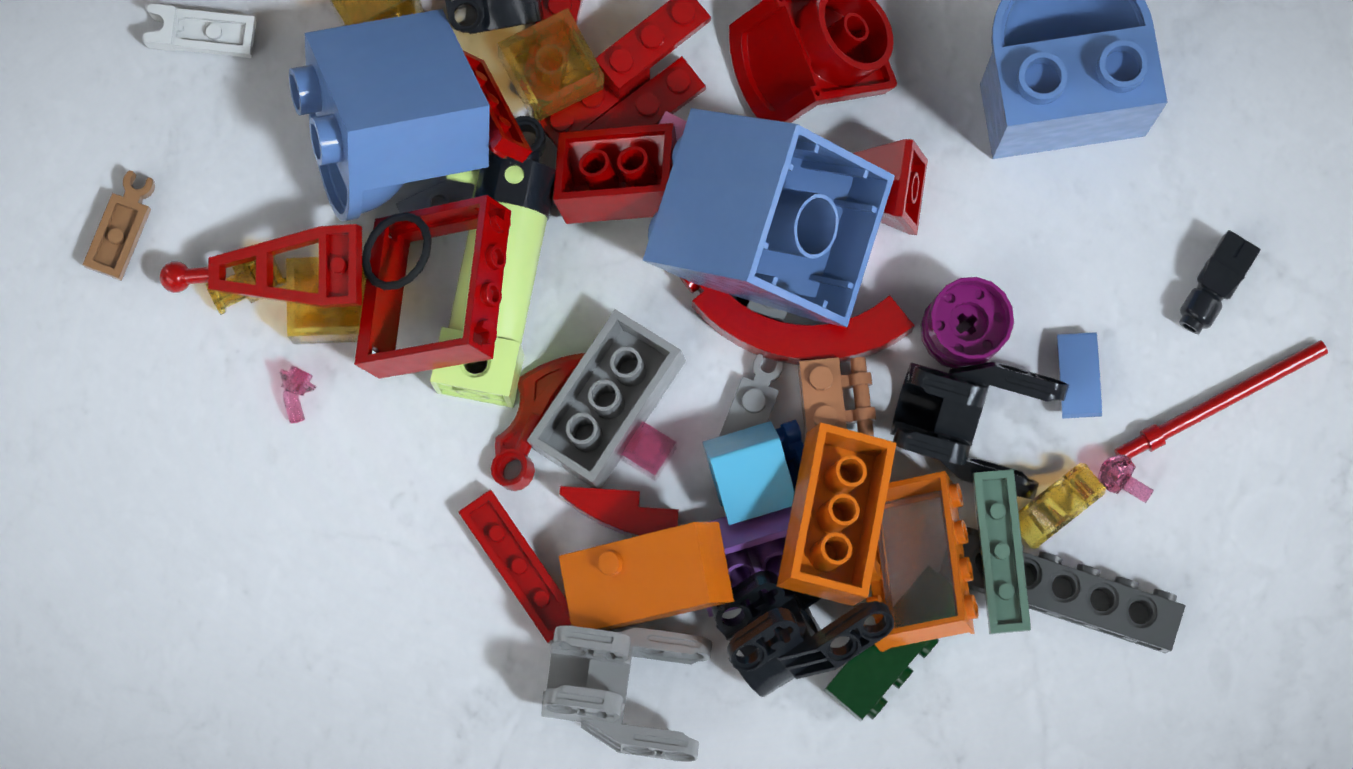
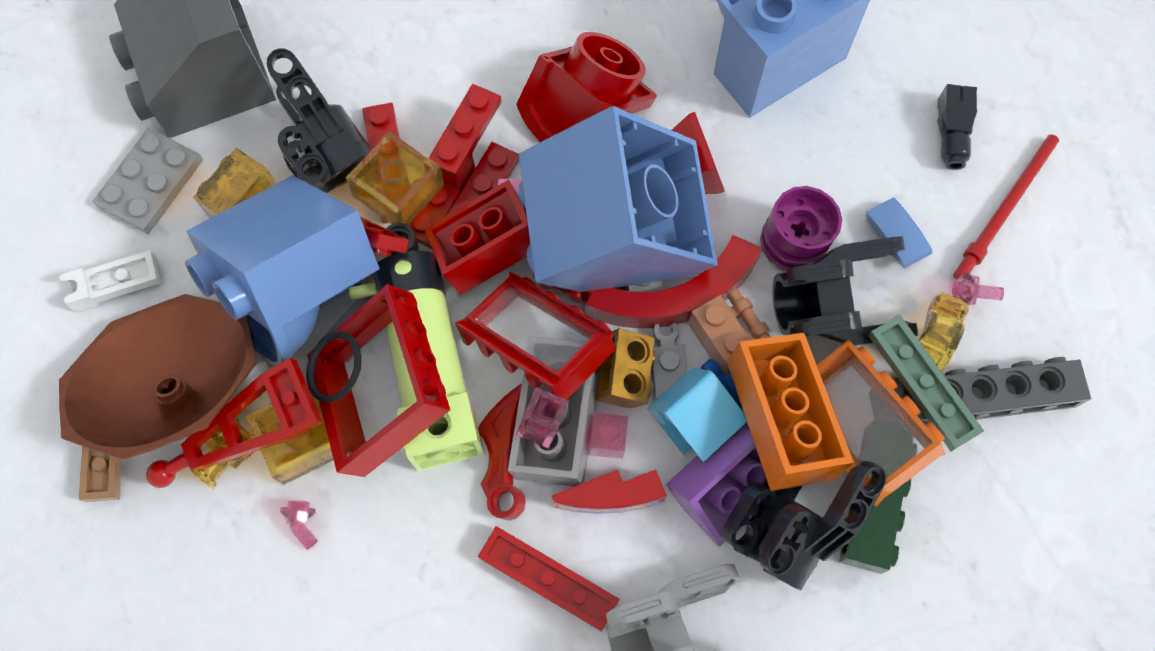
camera: 25 degrees left, 10 degrees down
(211, 172) = (155, 377): none -> copper piece
(583, 405) = (542, 417): none -> clear pink brick
(623, 312) = (538, 335): none -> window
(647, 577) = (660, 535): orange brick -> none
(693, 382) = (622, 368): none -> pearl gold brick

